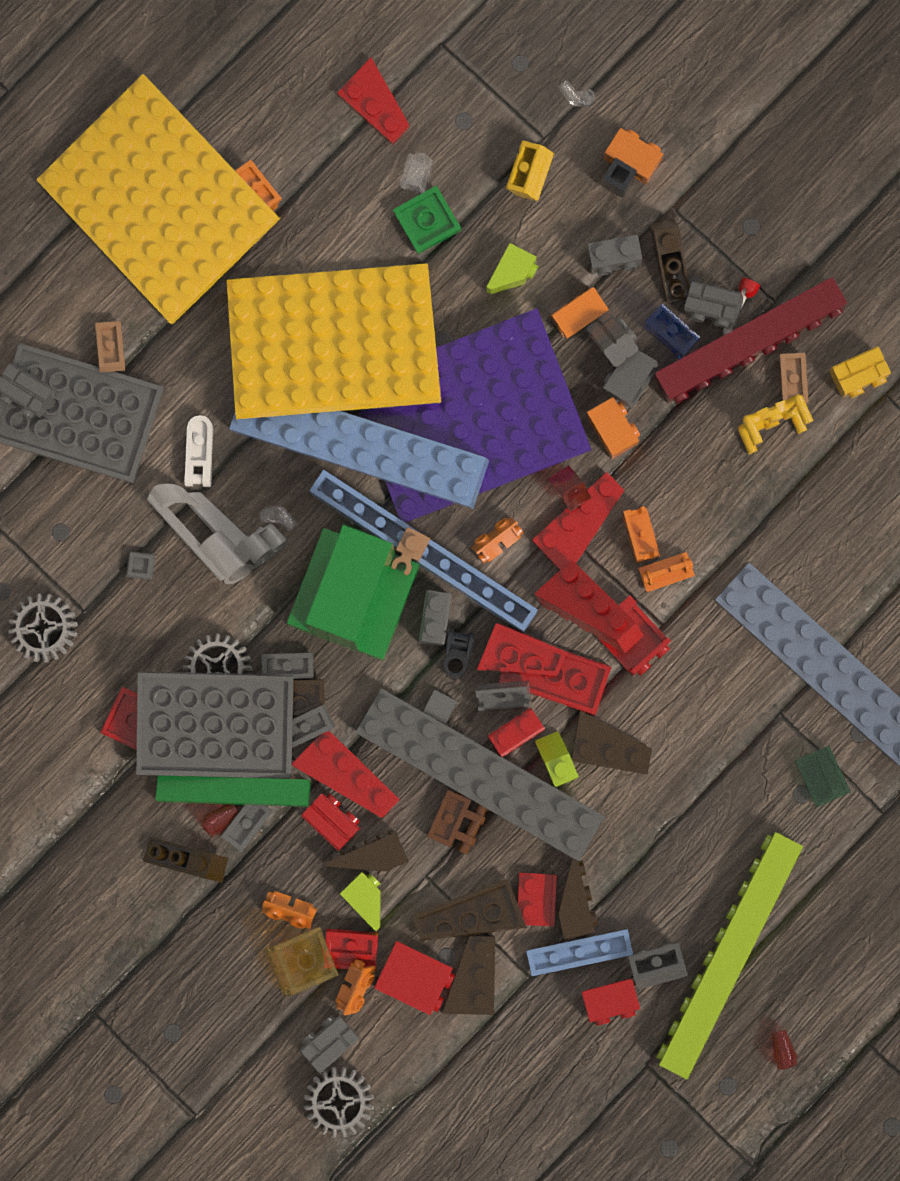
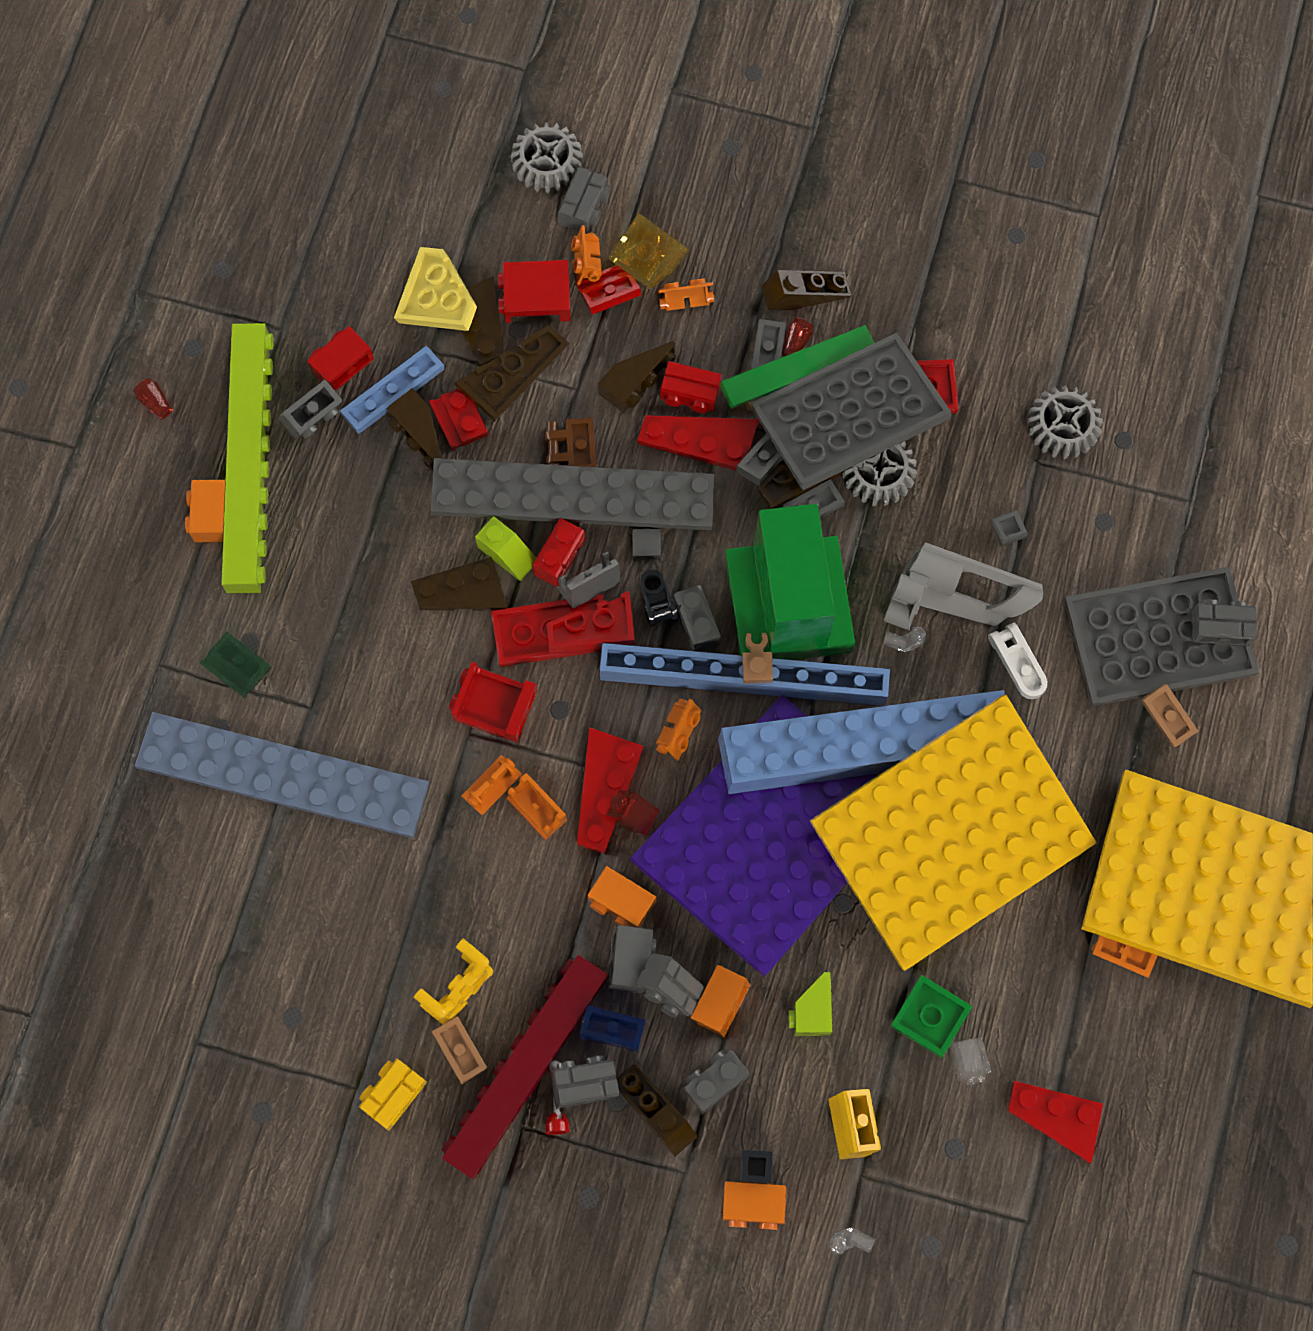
camera: 145 degrees right, 10 degrees down
(365, 898) = (619, 334): lime slope -> none
(500, 1018) = (435, 294): none -> light yellow plate
(583, 602) = (550, 700): red wedge -> none
(784, 922) = (206, 510): none -> orange brick

